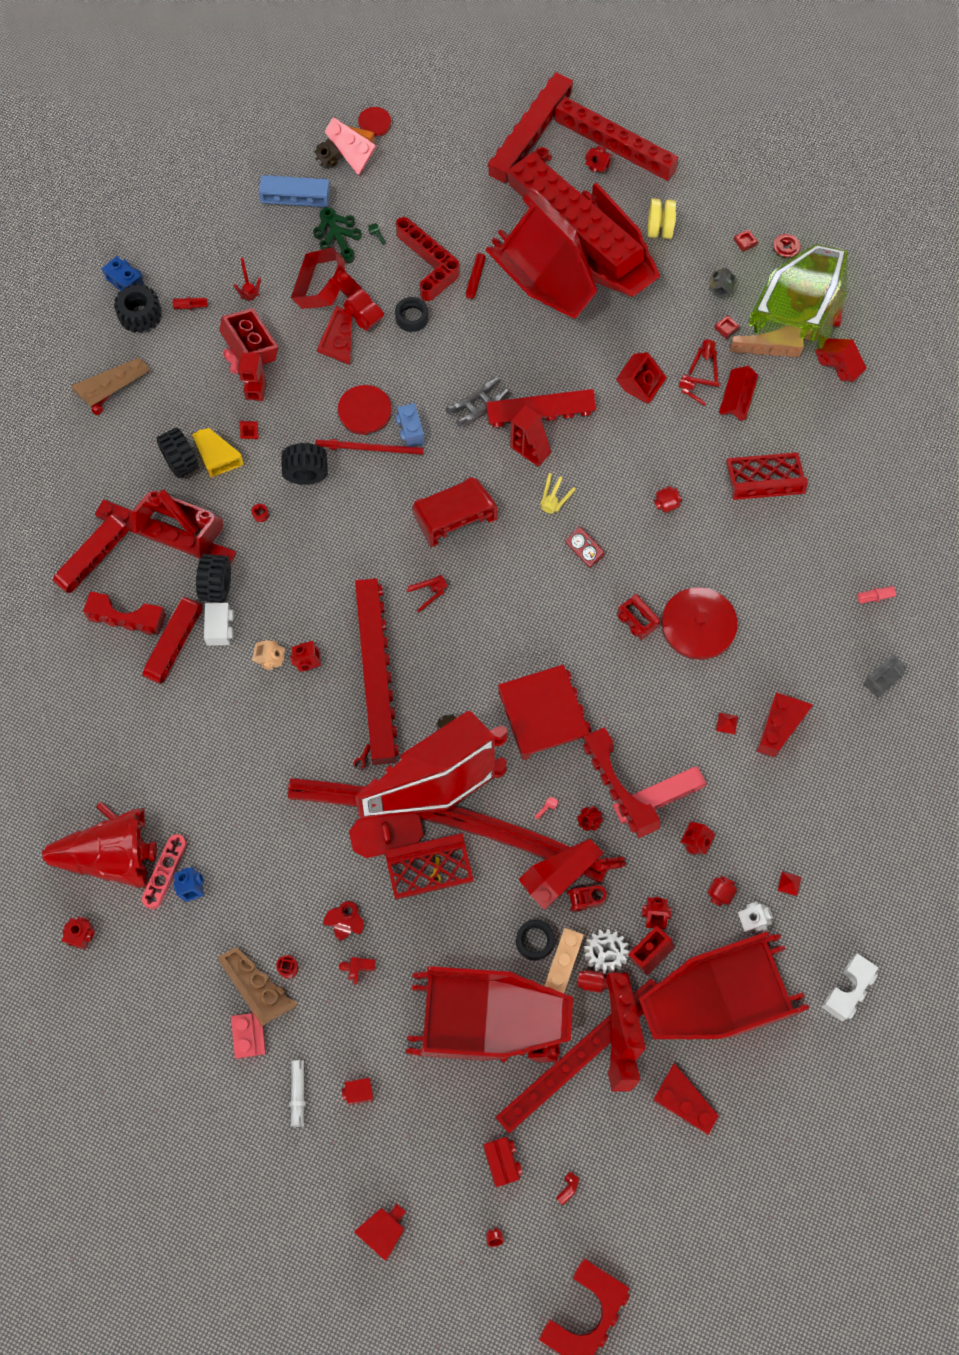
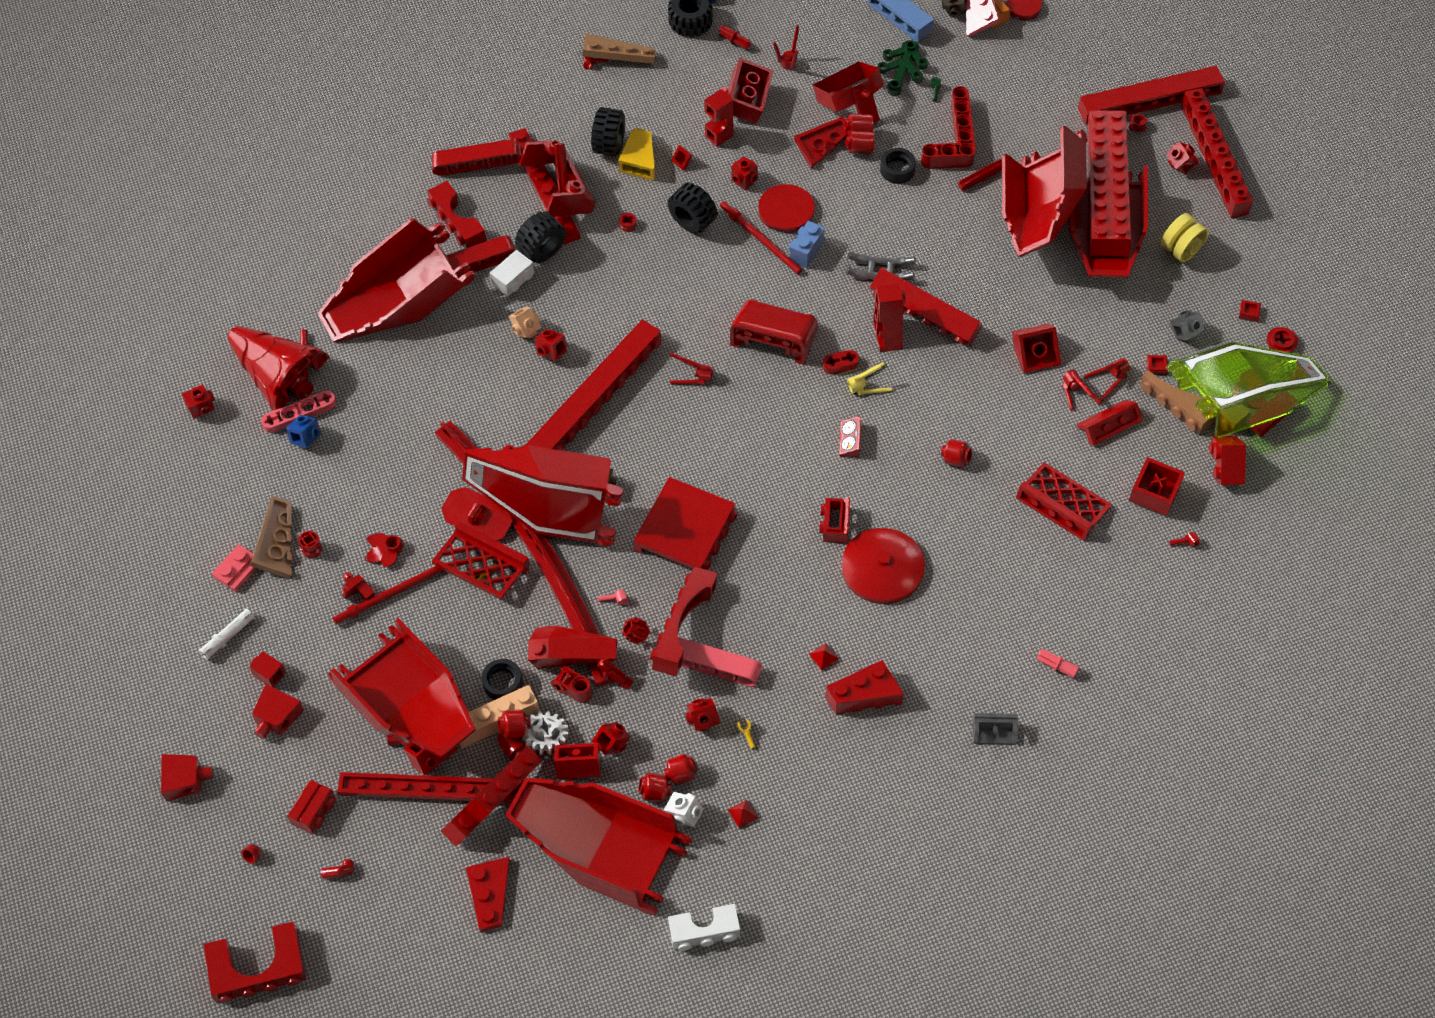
camera: 45 degrees right, 10 degrees down
(137, 709) = (395, 283): none -> red windscreen
(309, 405) = (744, 172): none -> red brick
(373, 988) = (353, 611): none -> red bar
(399, 1118) = (275, 711): none -> red torso
(518, 494) = (840, 362): none -> red beam
(587, 966) = (513, 724): none -> red head
(718, 920) = (654, 787): none -> red head
(732, 822) = (747, 733): none -> yellow hand
(817, 415) = (1157, 486): none -> red brick
(870, 435) = (1192, 538): none -> red hand

